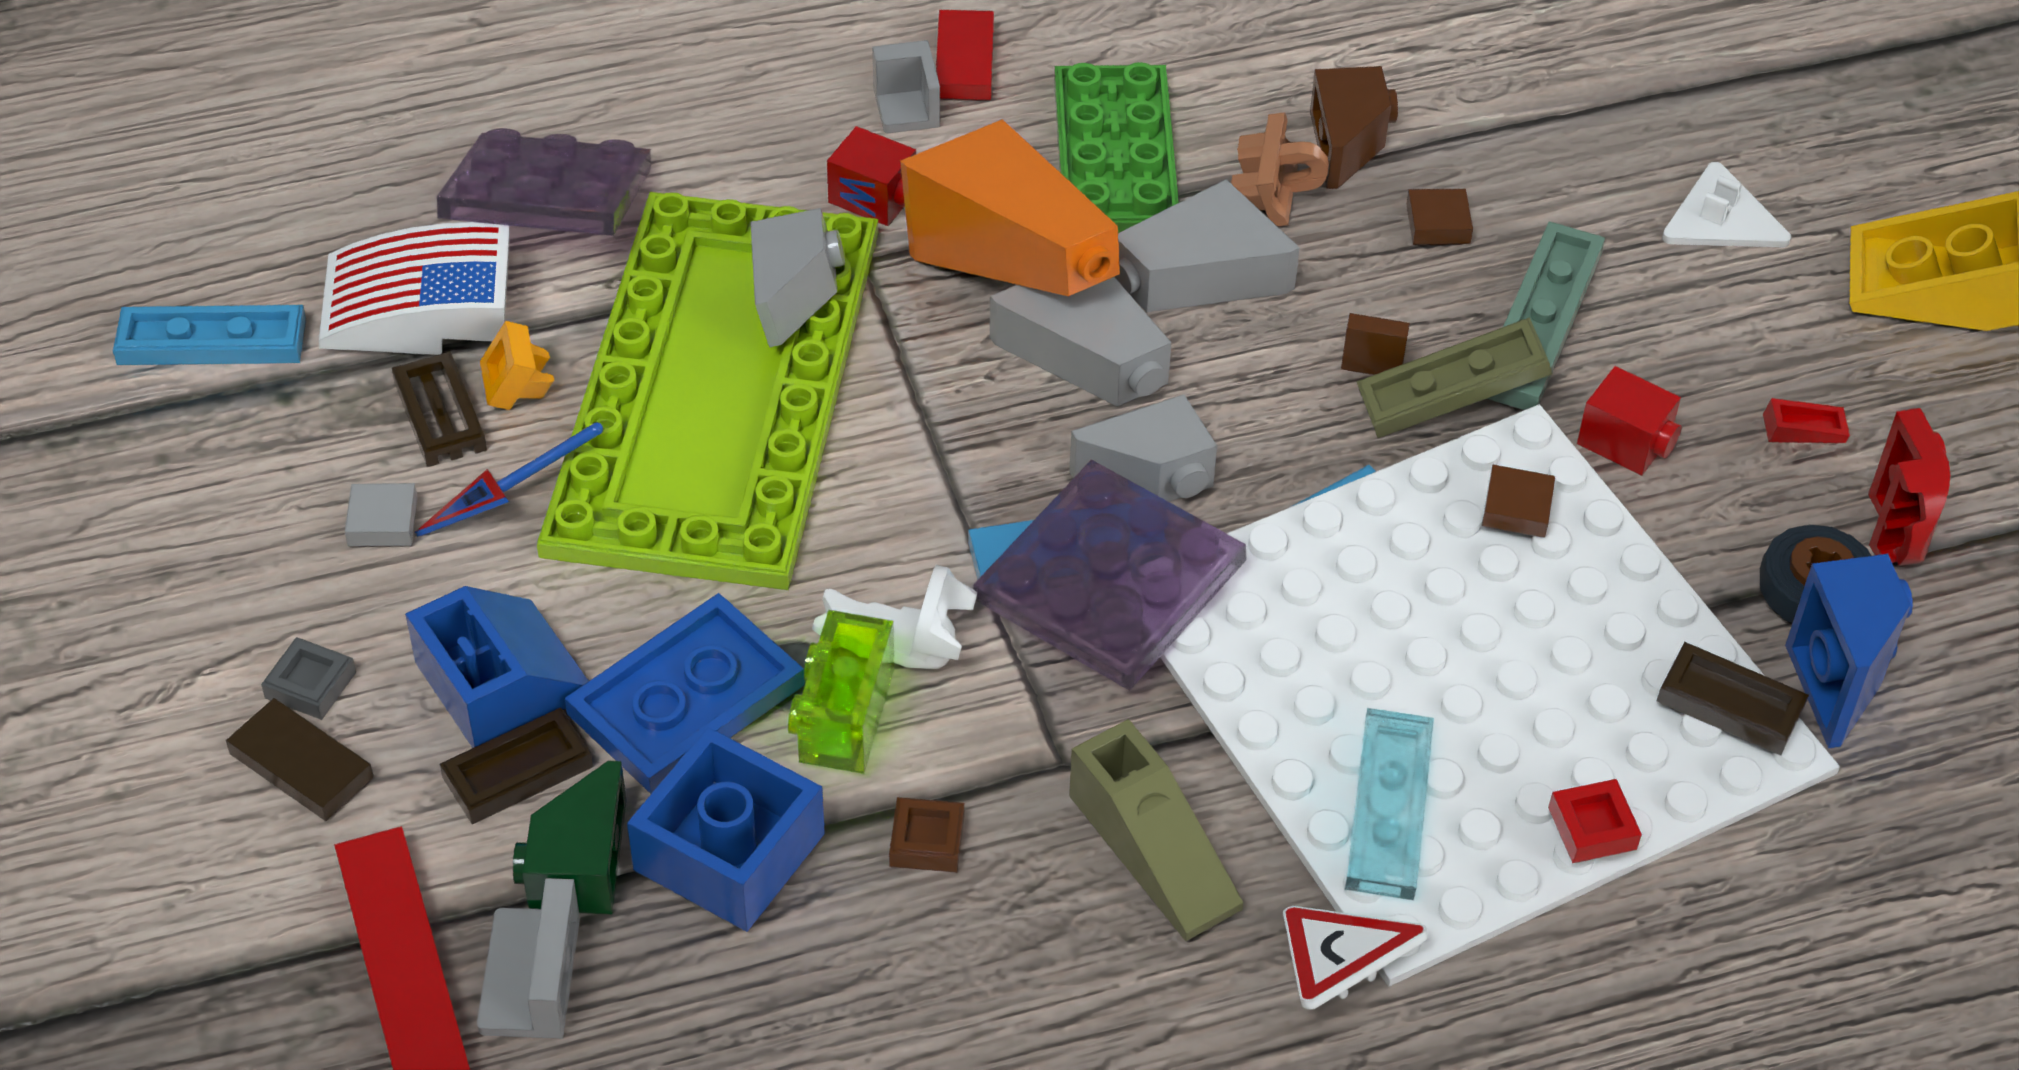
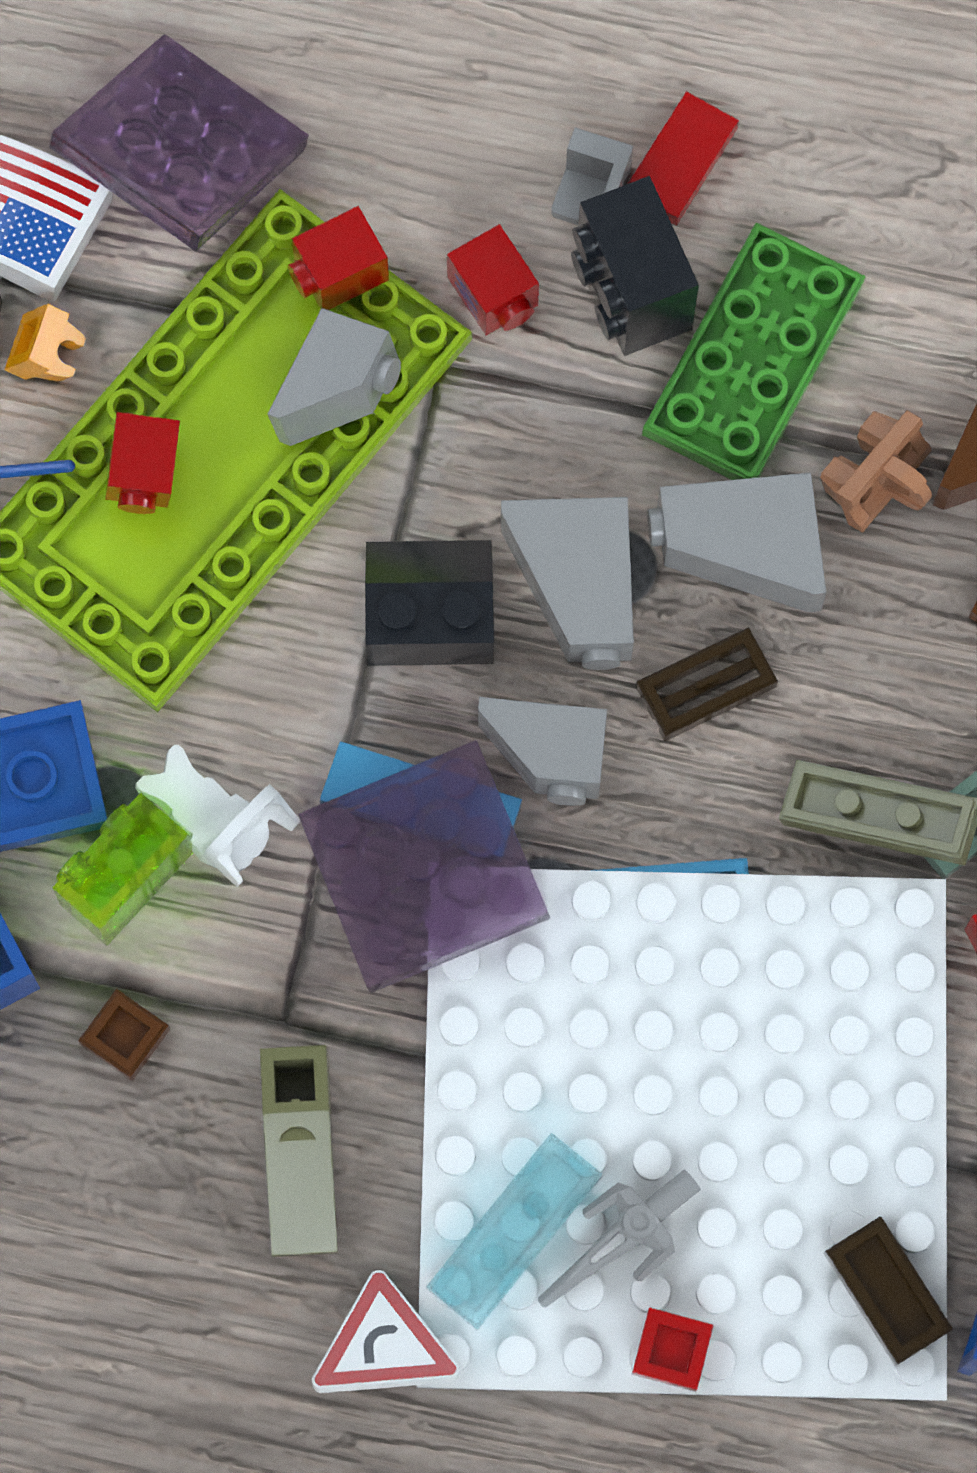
camera: 30 degrees right, 25 degrees up
(662, 392) = (142, 462): none -> red brick
(740, 190) = (338, 260): none -> red brick
(979, 82) = (634, 266): none -> black brick
(980, 408) = (429, 603): none -> black slope
(1005, 215) = (560, 417): orange slope -> none
(1222, 398) = (659, 708): none -> dark brown tile
(1374, 344) = (836, 731): reddish brown tile -> none
(1490, 745) = (637, 1223): none -> light grey piece
(1518, 501) = (838, 986): reddish brown tile -> none

